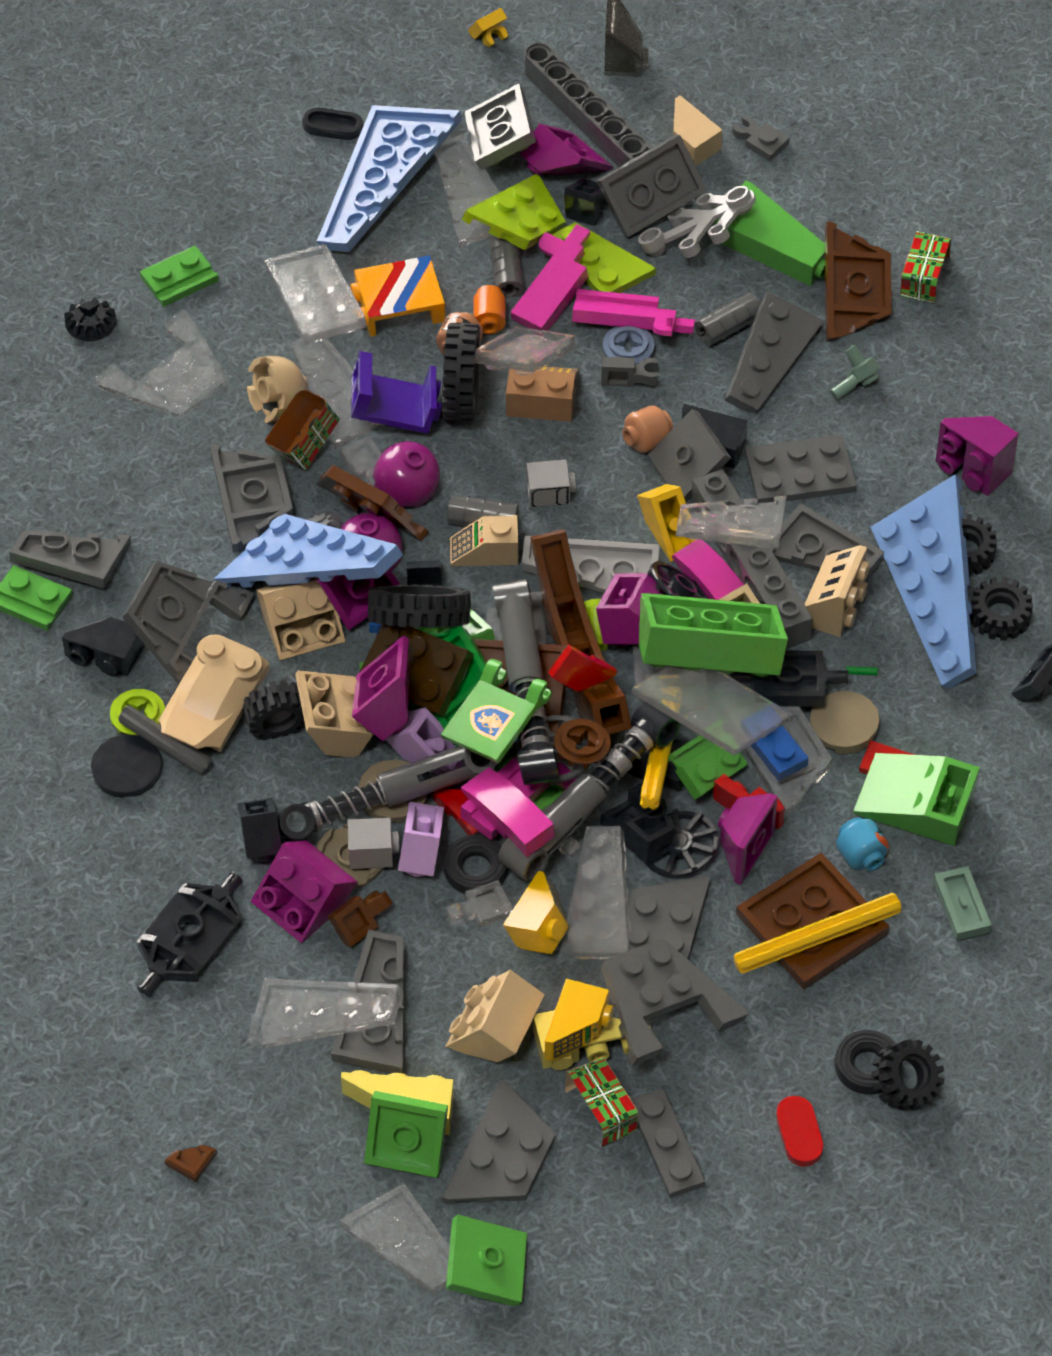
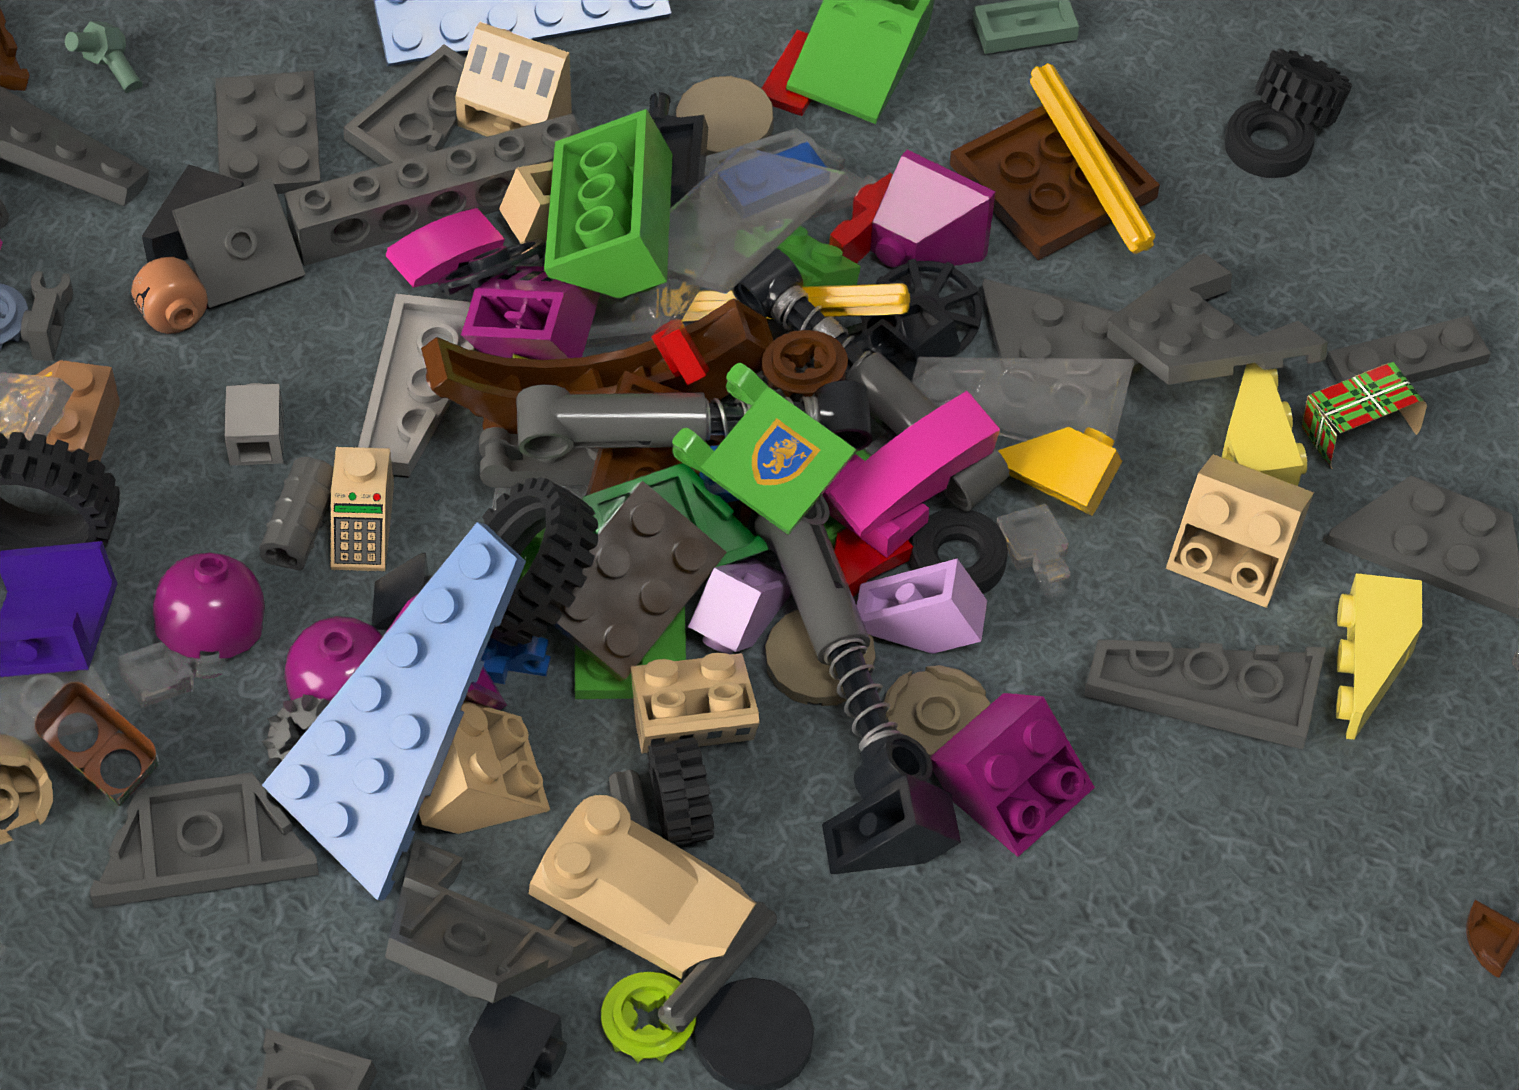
camera: 90 degrees left, 0 degrees up
(183, 955) = (1114, 969): black plate -> none
(311, 1010) = (1237, 760): clear wing -> none
(356, 916) = (1069, 706): reddish brown plate -> none
(359, 494) = (243, 675): reddish brown wing -> none
(371, 843) = (941, 668): light grey brick -> none
(383, 691) = (684, 605): magenta slope -> none
(406, 1134) = (1449, 635): bright green plate -> none
(577, 1018) = (1268, 410): yellow slope -> none
(661, 514) = (343, 280): yellow slope -> none
(738, 524) = (408, 167): clear wing -> none
(799, 1131) = (1377, 216): red tile -> none
(862, 670) = (633, 97): green piece -> none
(862, 844) = (933, 112): dark azure head -> none

